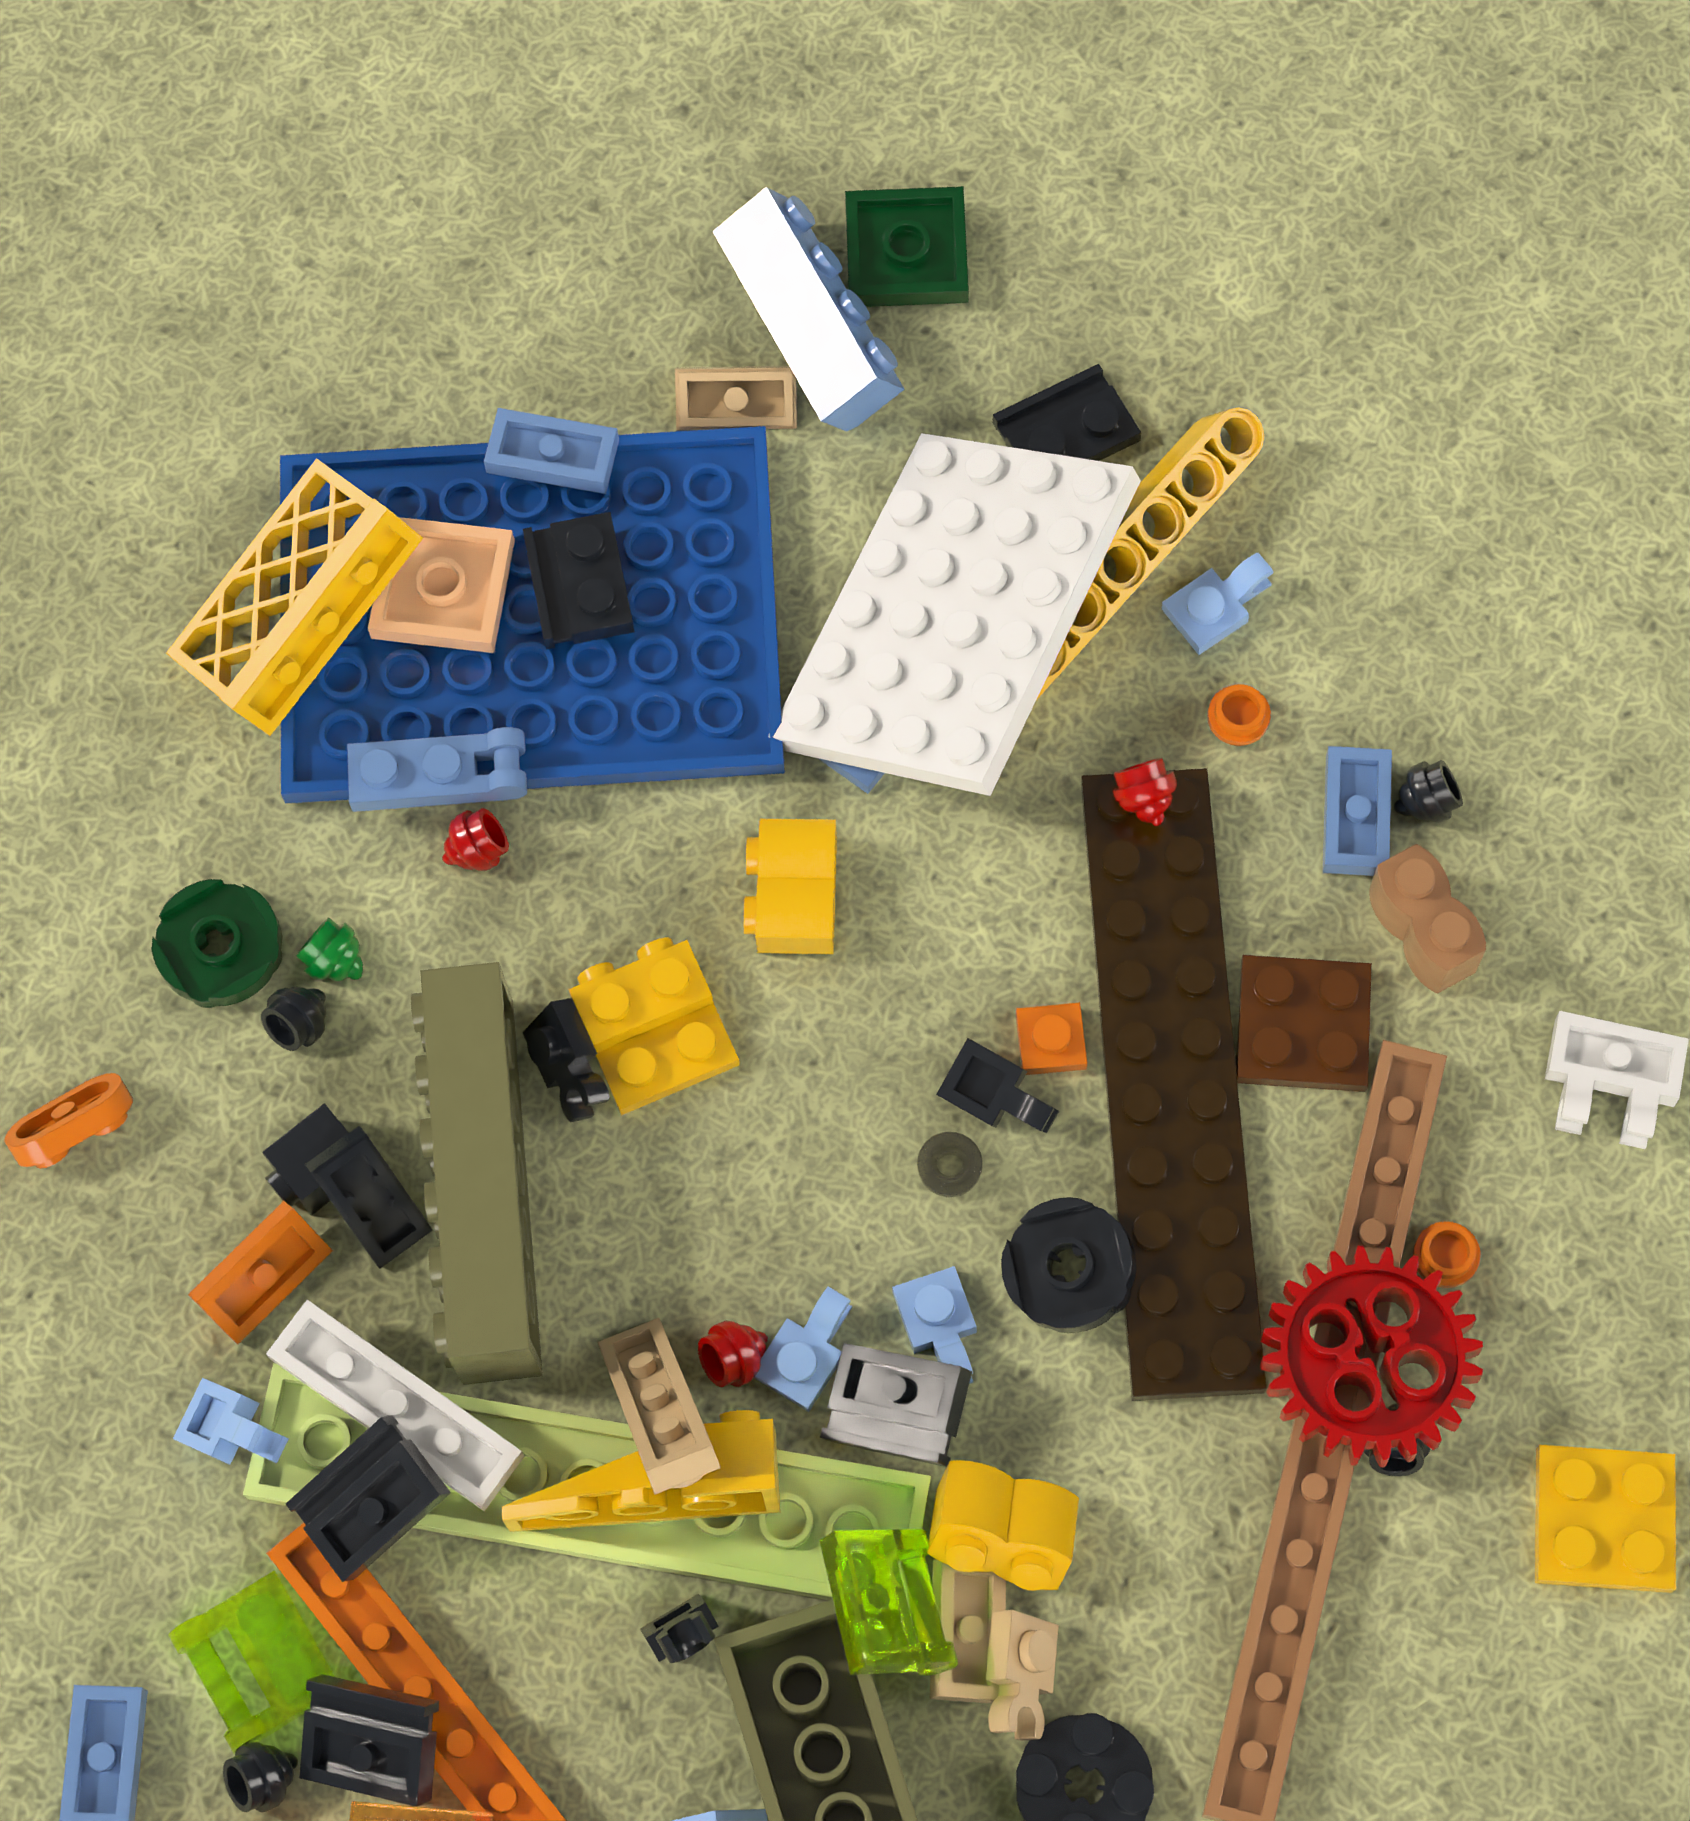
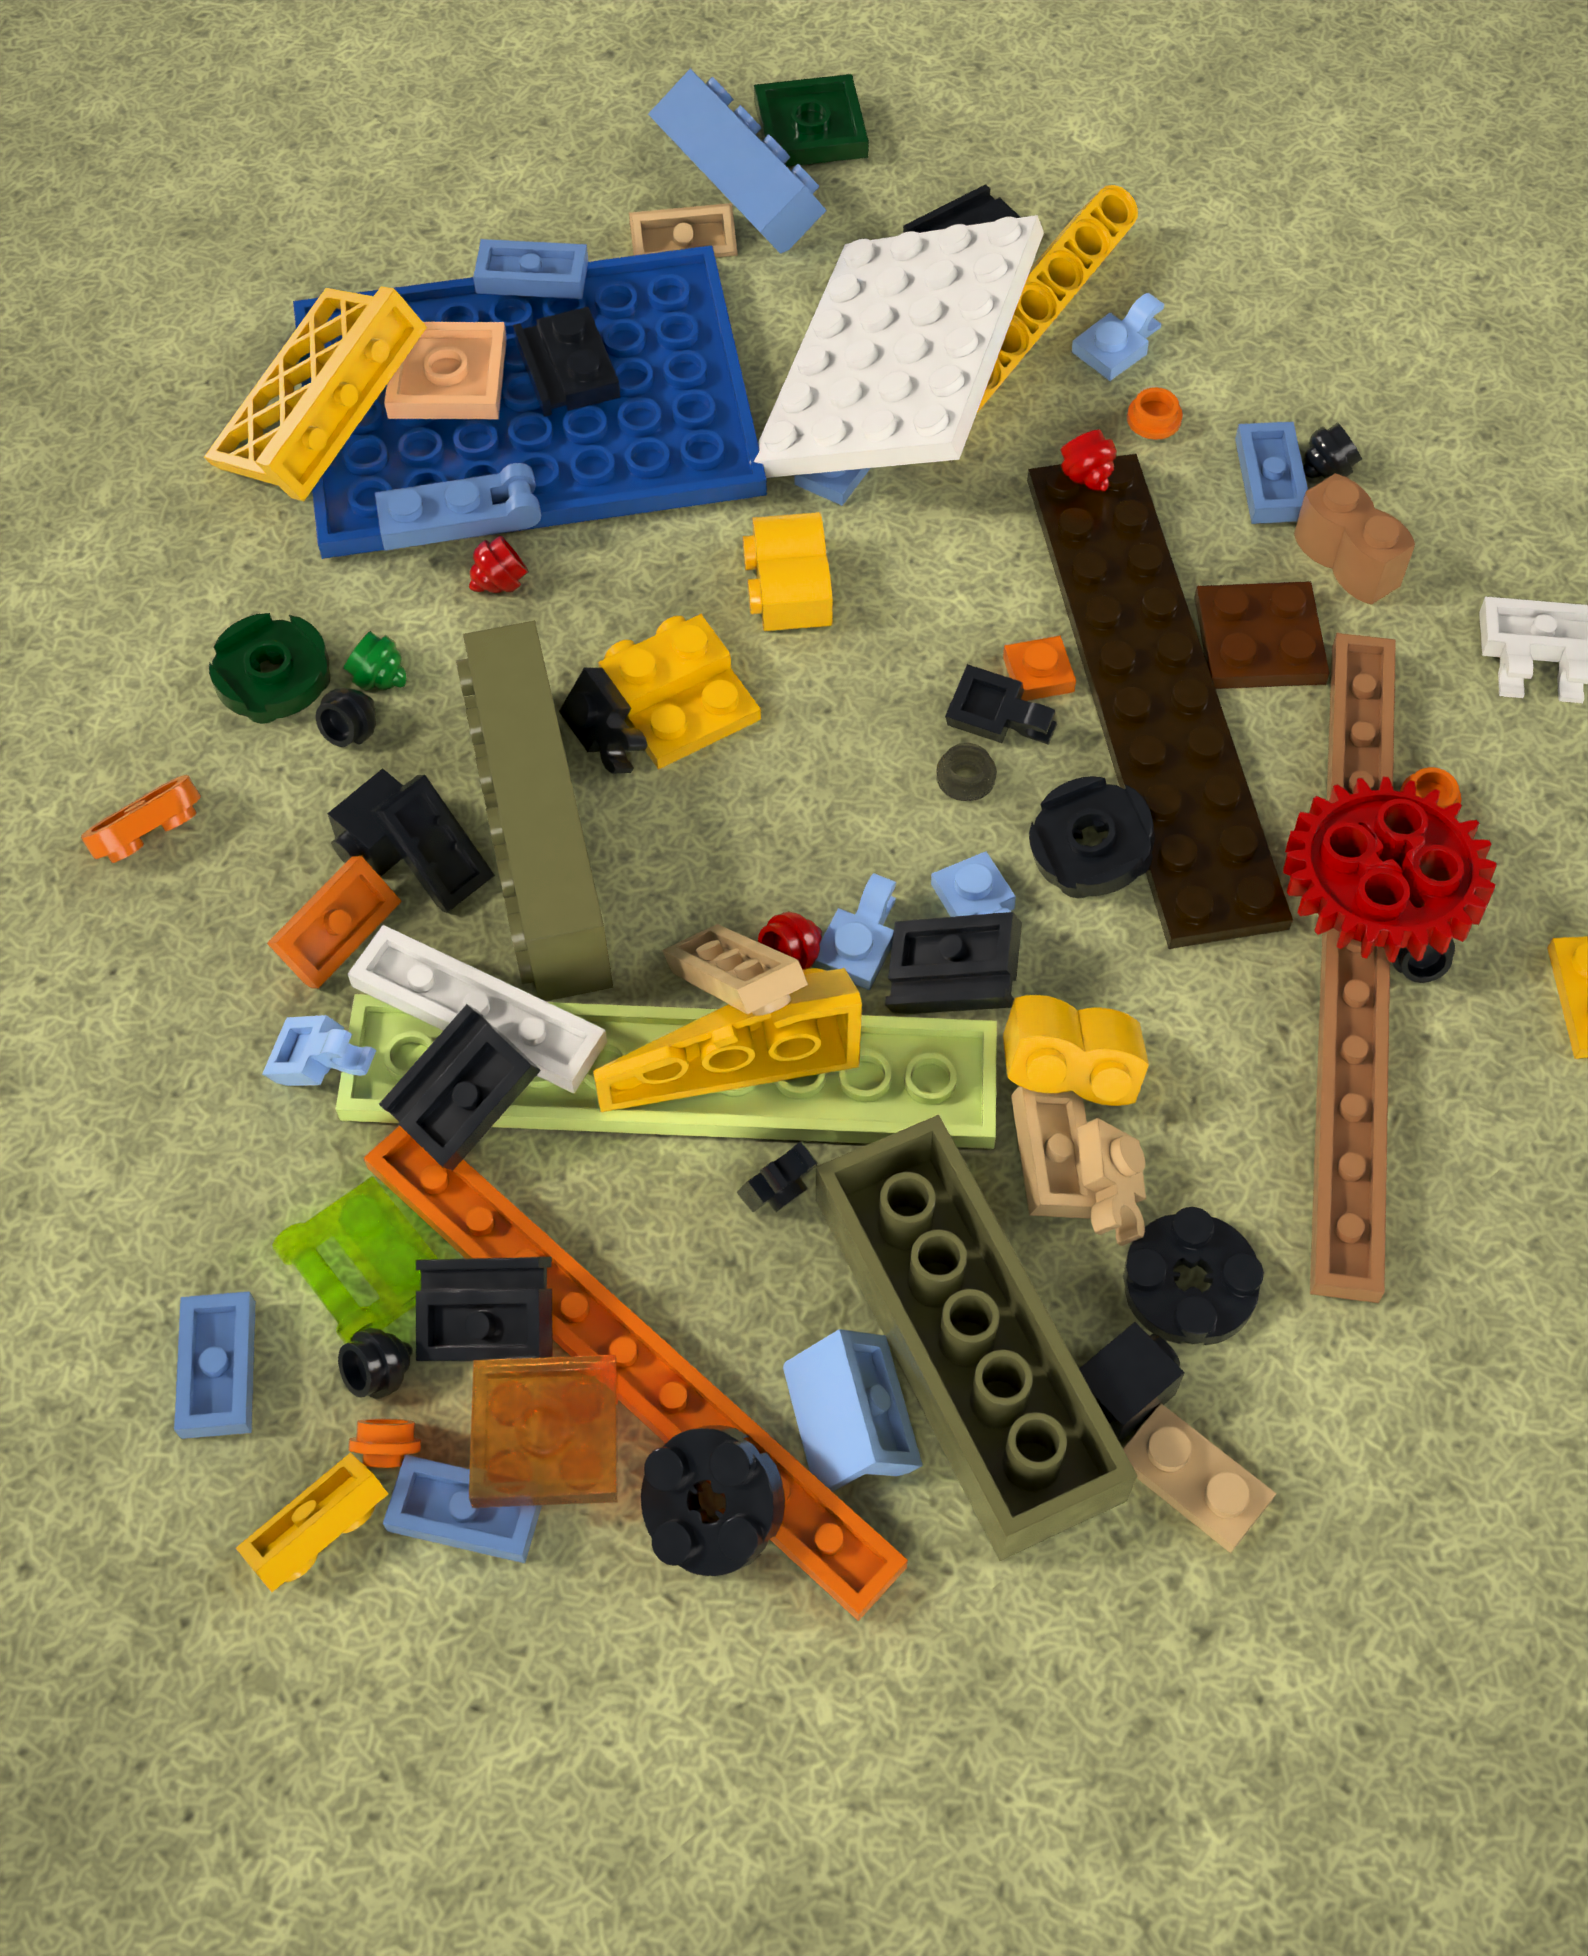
camera: 10 degrees left, 10 degrees down
(874, 1603) = (979, 1115): clear neon green plate -> none

